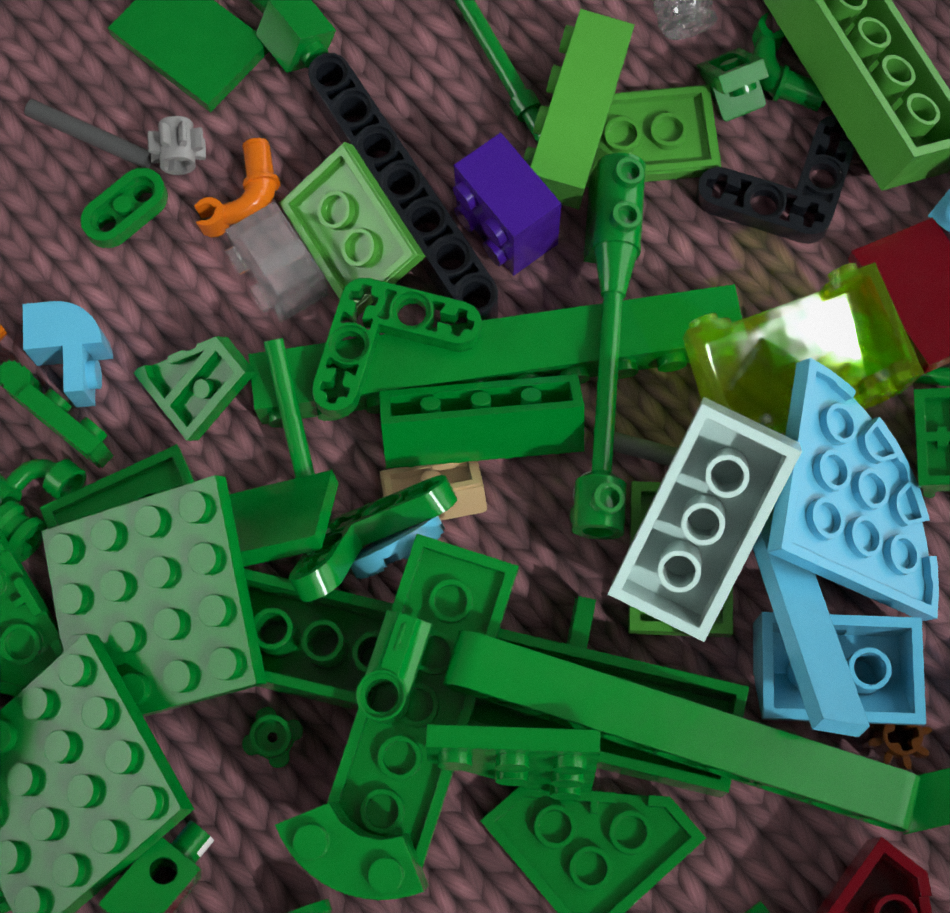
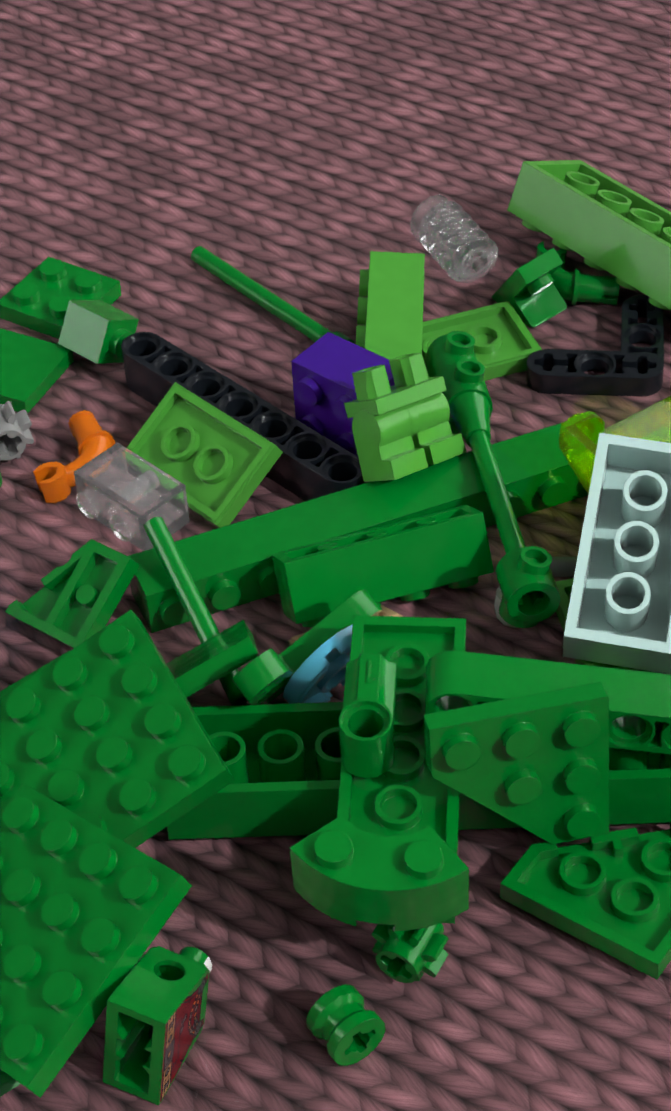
camera: 15 degrees left, 30 degrees down
(269, 722) = (251, 862): green plate -> none
(384, 319) = (256, 497): green beam -> none
(540, 270) = (403, 424): none -> bright green hips

